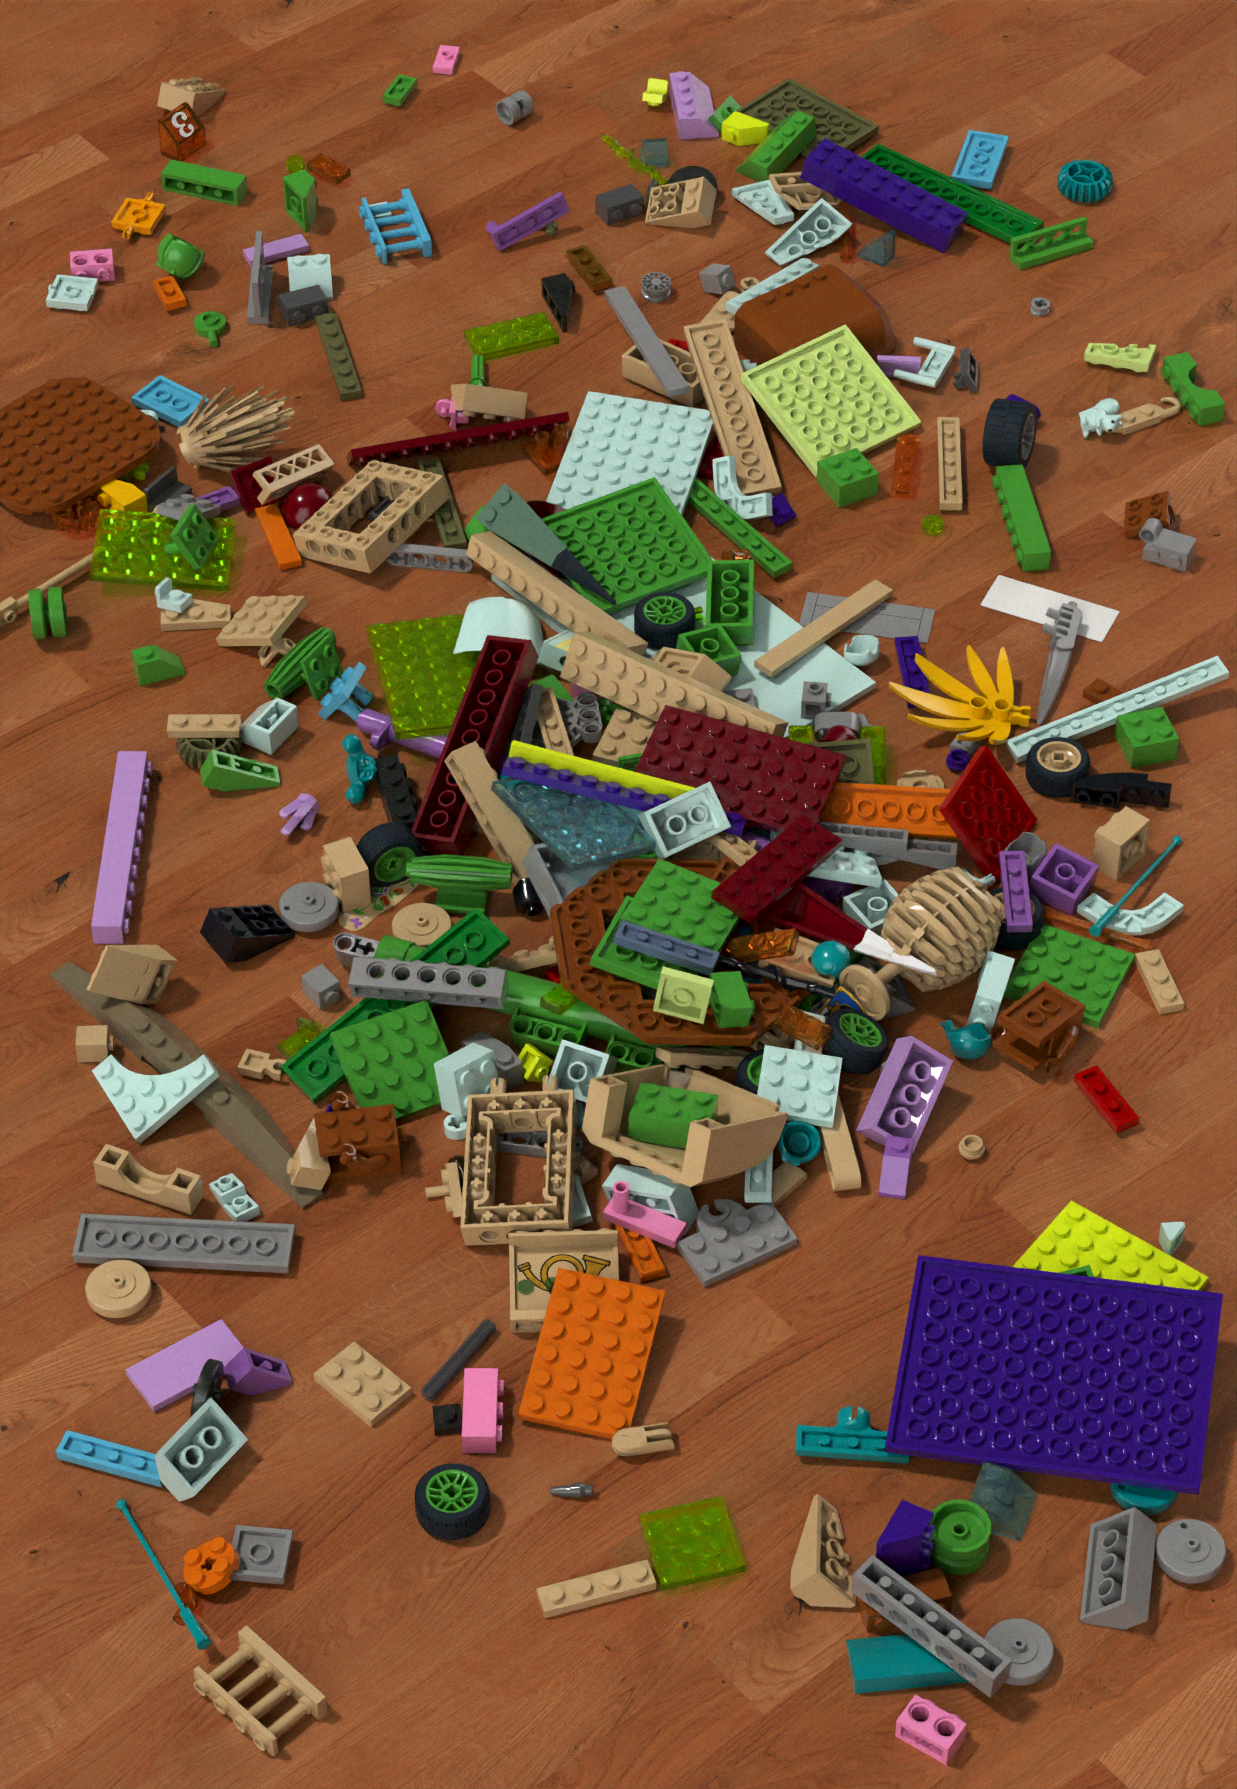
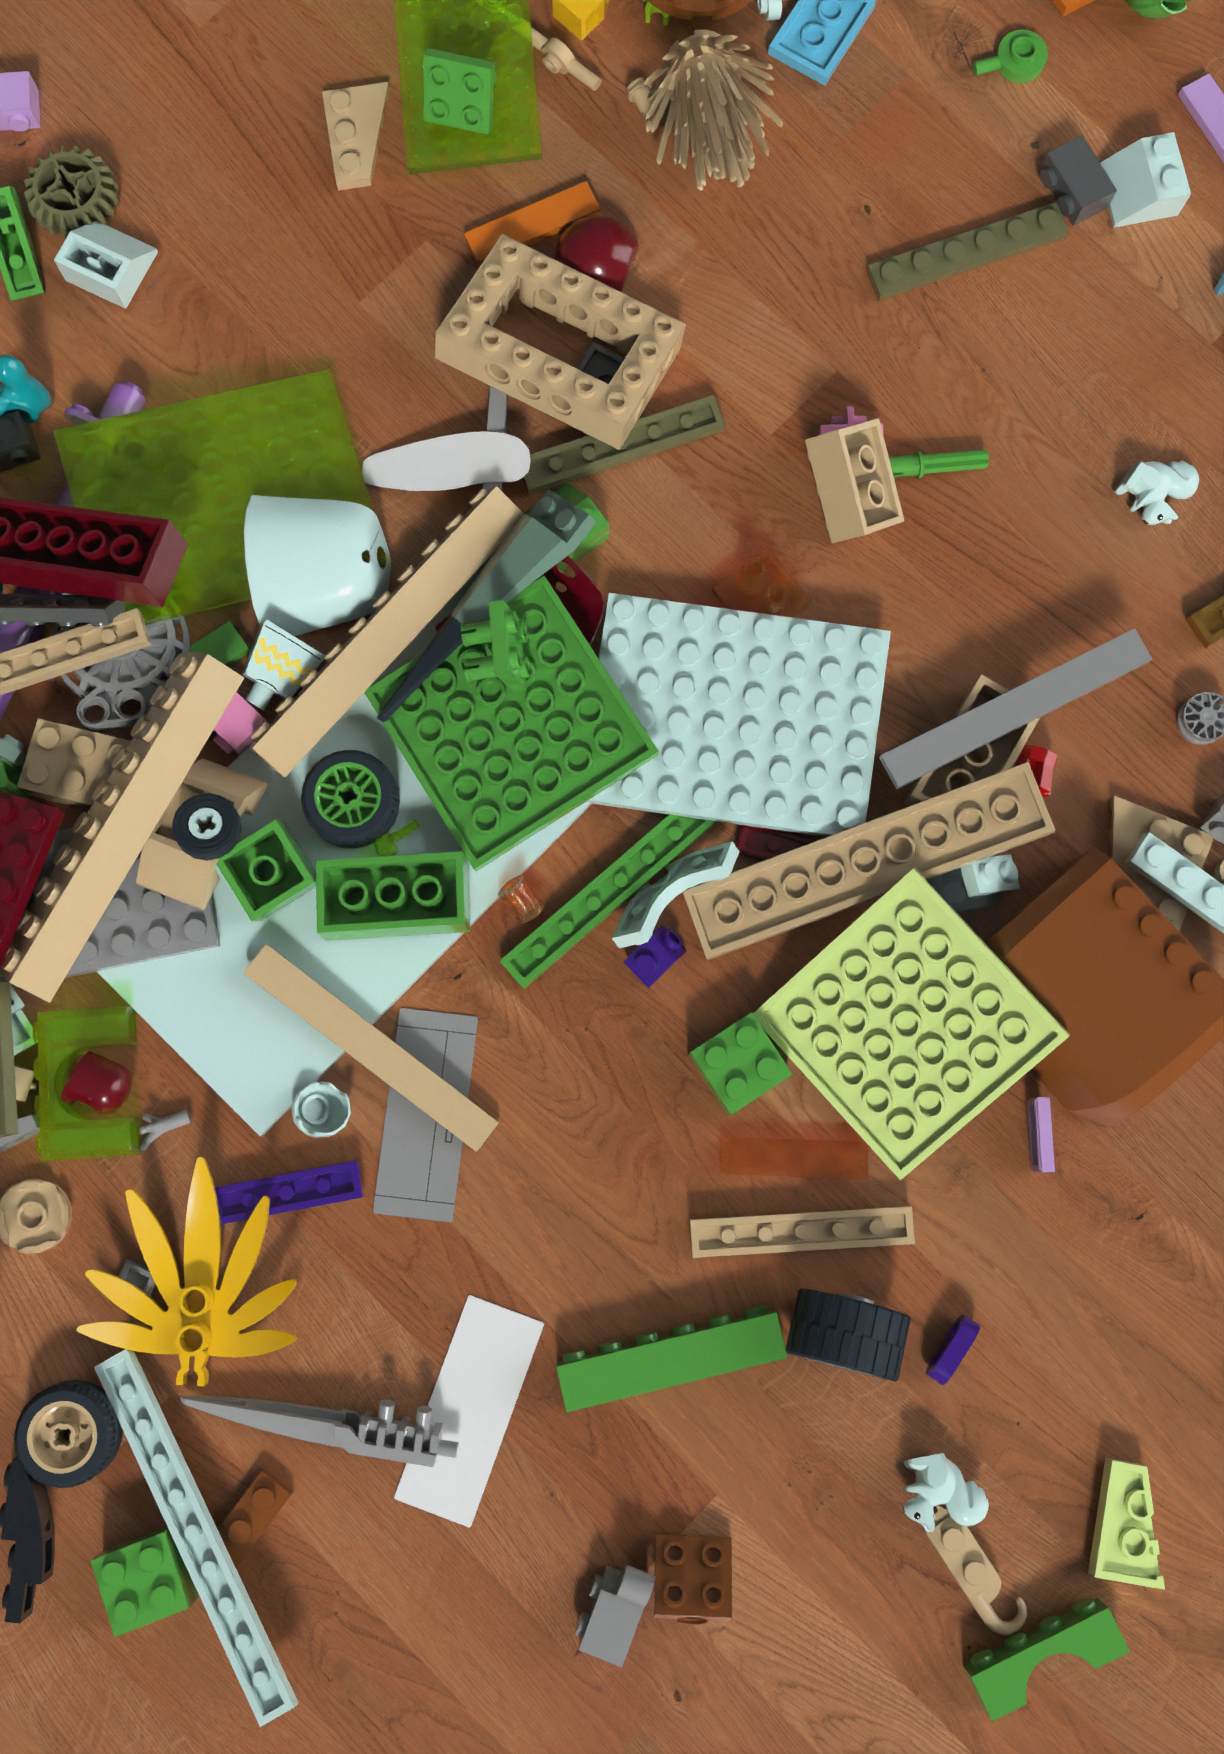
camera: 80 degrees right, 35 degrees up
(155, 664) = (231, 97): bright green slope -> none
(165, 488) = (609, 53): dark grey panel -> none
(171, 599) = (360, 92): light aqua bracket -> none
(176, 507) = (542, 81): light grey plate -> none
(203, 480) = (638, 94): none -> tan pin
(203, 726) = (75, 172): tan plate -> none
(224, 497) = (595, 123): medium lavender plate -> none
(247, 486) = (624, 172): dark red plate -> none
(260, 285) = (1126, 113): light grey fence -> none
(261, 621) = (322, 223): tan plate -> none
(282, 646) = (278, 264): tan bracket -> none
(309, 661) = (228, 296): bright green plate -> none
(310, 474) = (632, 221): tan fence -> none
(342, 690) = (163, 349): medium azure plate -> none
(442, 572) = (449, 462): none -> white sticker
(447, 441) = (763, 449): dark red plate -> none
(508, 293) = (1153, 482): none -> light aqua animal
(511, 336) = (1050, 504): clear neon green plate -> none
(558, 295) = (1151, 568): pearl dark grey slope -> none
(582, 525) = (507, 640): none -> bright green plate
(675, 657) = (211, 843): none -> black bush
(814, 699) = (190, 1043): light grey brick -> none
(826, 720) = (150, 1080): light grey beam -> none
(932, 524) = (636, 1209): clear neon green plate -> none
(934, 365) = (1055, 1195): light aqua plate -> none
(957, 760) = (84, 1264): dark purple plate -> none
(969, 371) = (1039, 1256): dark grey plate -> none

